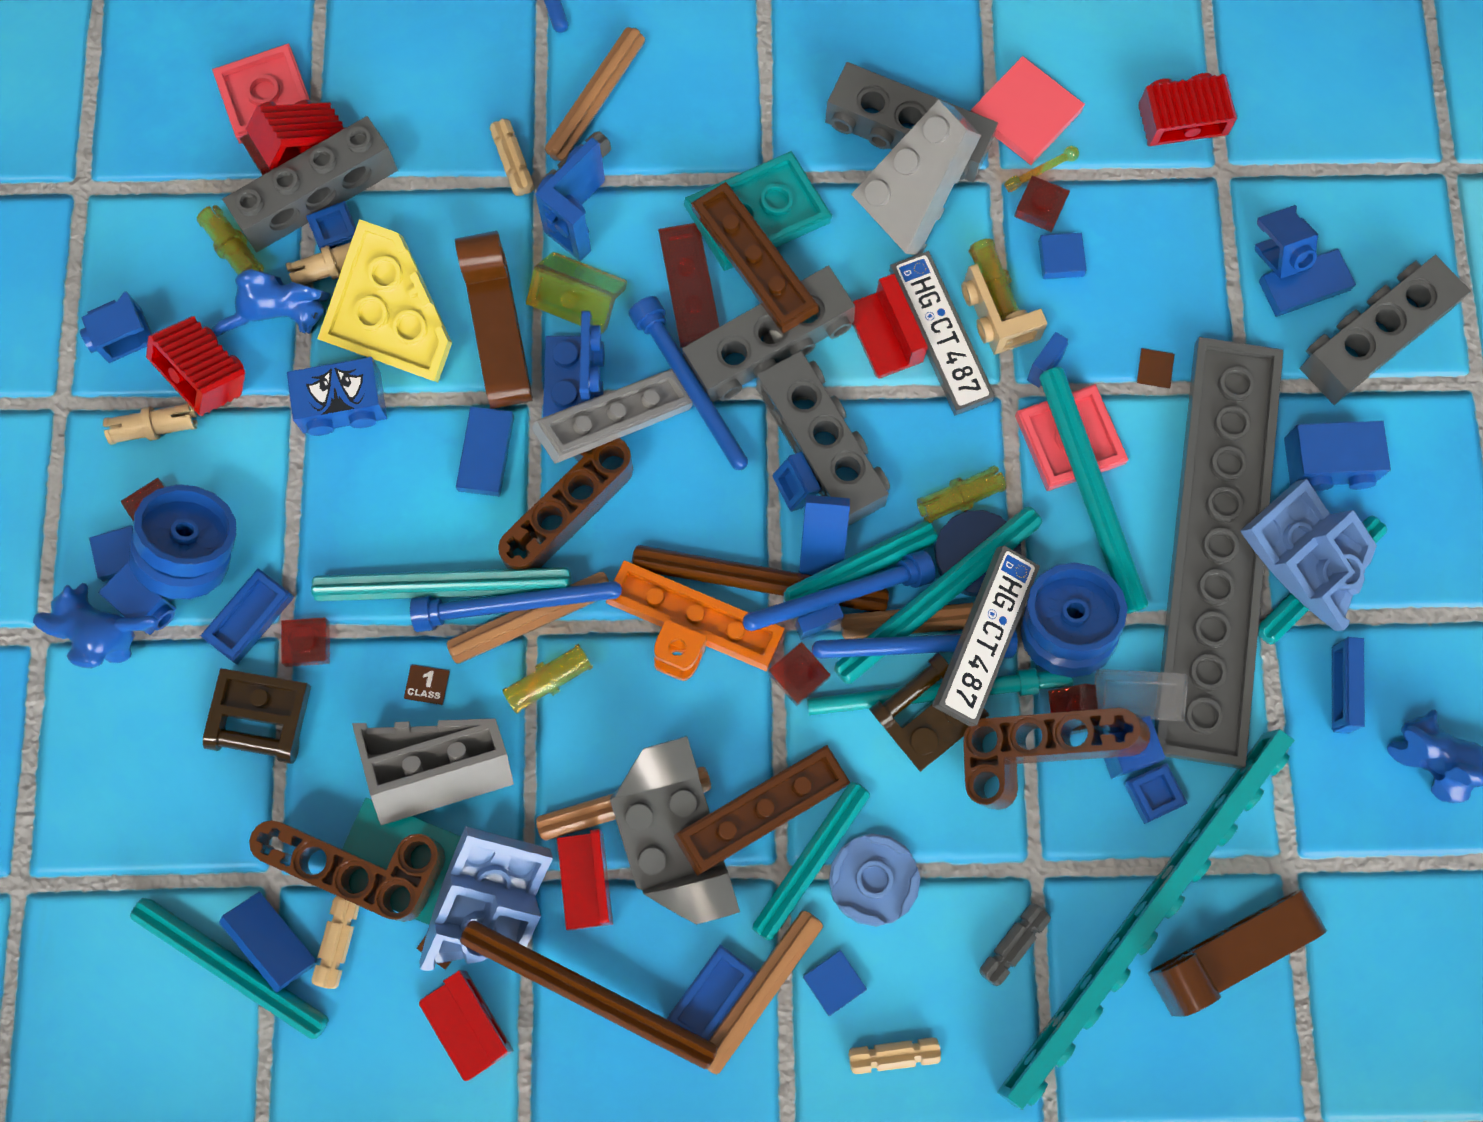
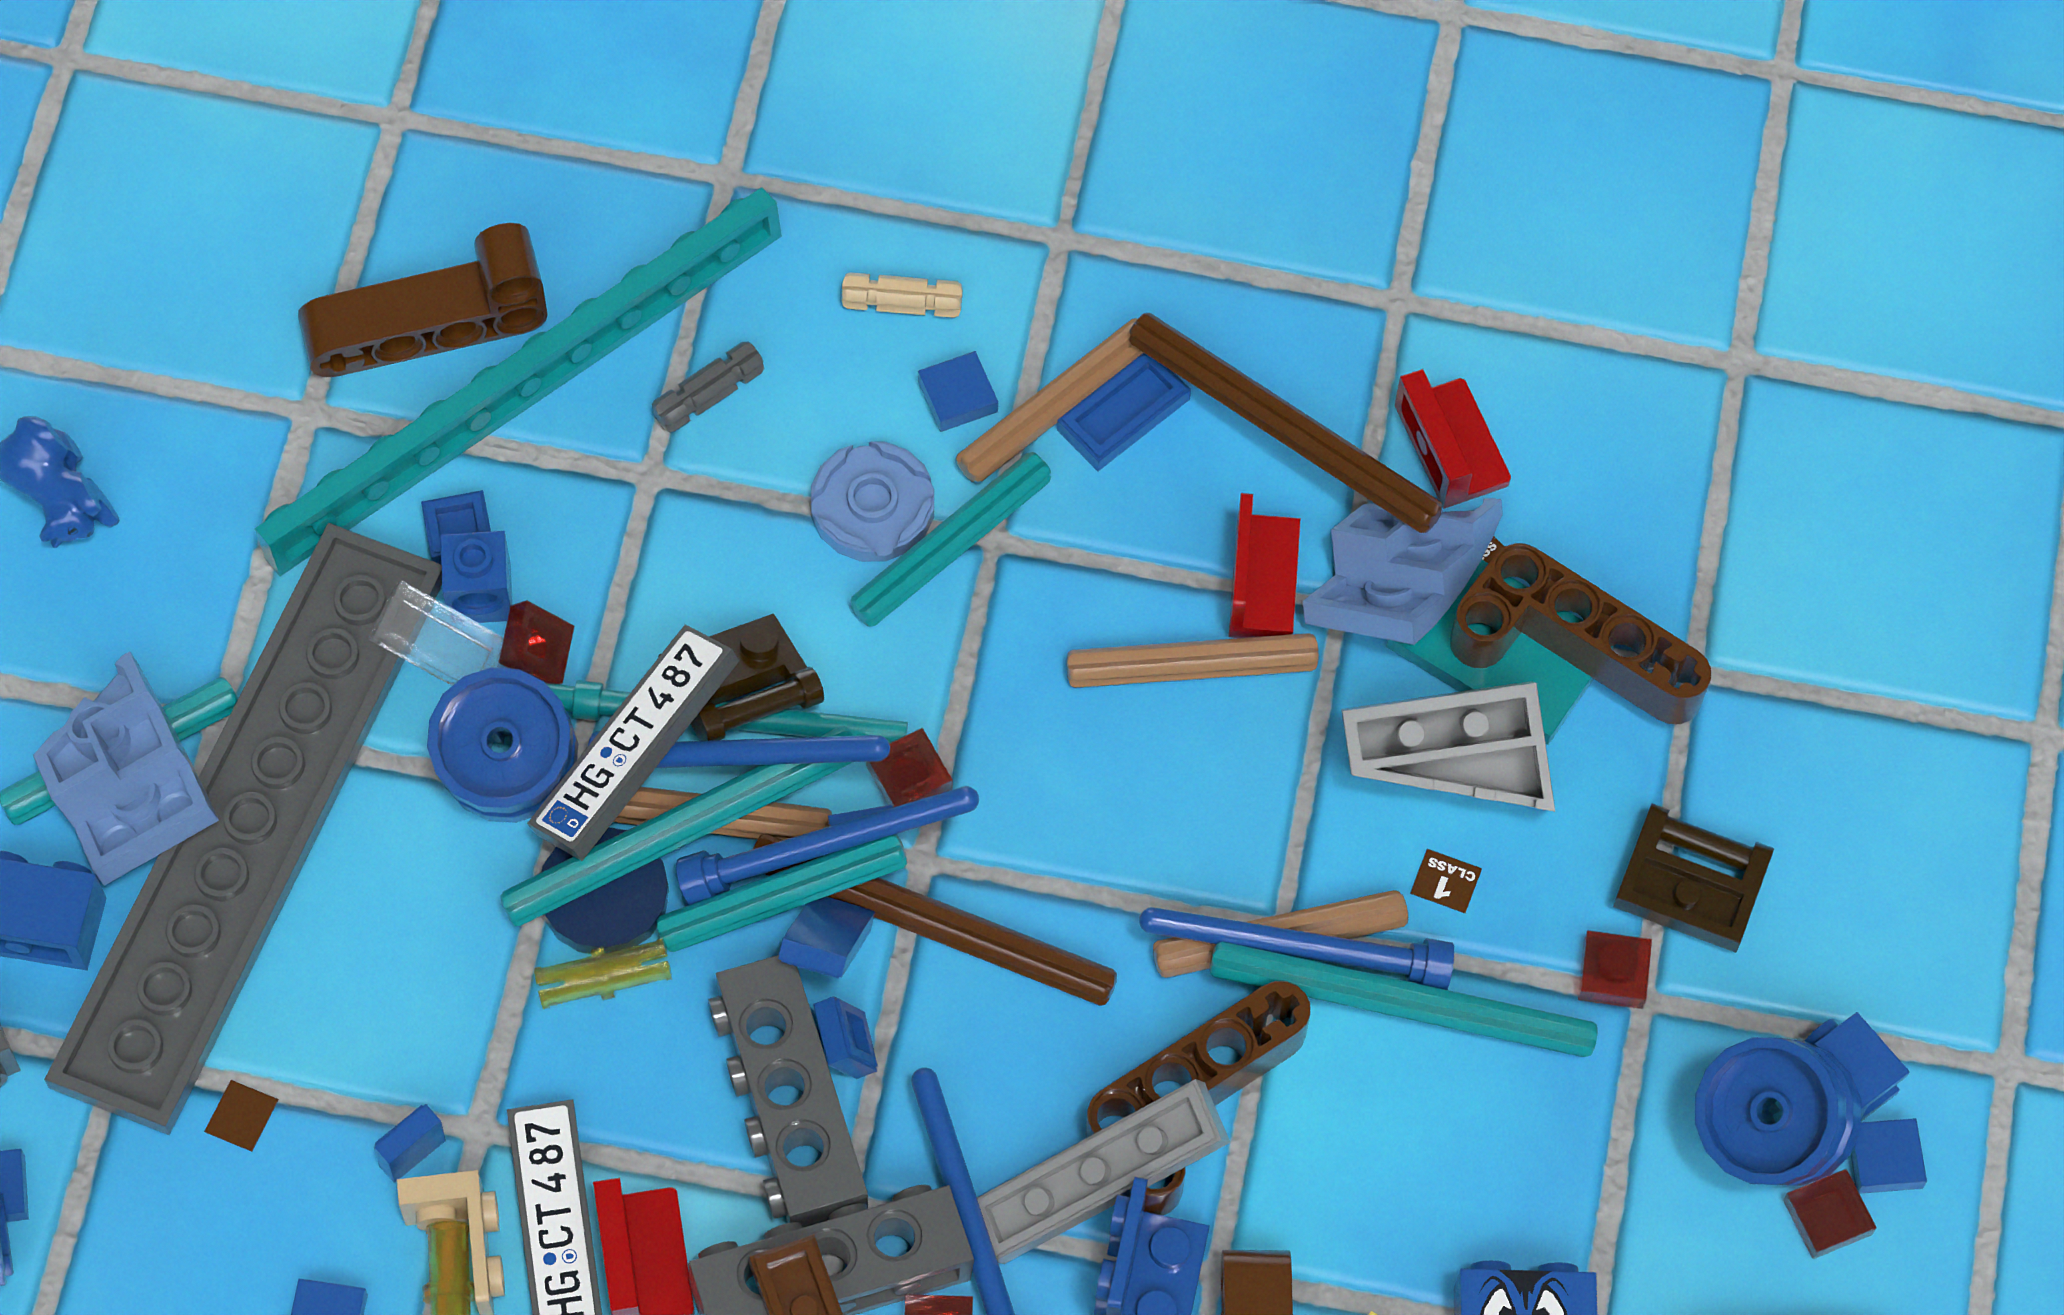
camera: 170 degrees left, 10 degrees down
(93, 632) = (1917, 1020): blue animal -> none
(228, 967) = (1761, 569): teal axle -> none
(247, 616) = (1697, 1025): blue tile -> none
(267, 941) = (1704, 583): blue tile -> none
(335, 943) = (1618, 555): tan axle -> none
(485, 451) = (1308, 1194): blue tile -> none
(547, 678) = (1269, 840): clear yellow pin -> none
(650, 807) = (1132, 579): dark grey piece -> none
(691, 623) = (1050, 874): orange plate -> none
(761, 810) = (1002, 601): reddish brown tile -> none
(1046, 444) = (409, 1032): coral tile -> none
(1055, 746) = (508, 561): reddish brown beam -> none
(1093, 487) = (408, 935): teal axle -> none
(1348, 685) = (145, 595): blue tile -> none

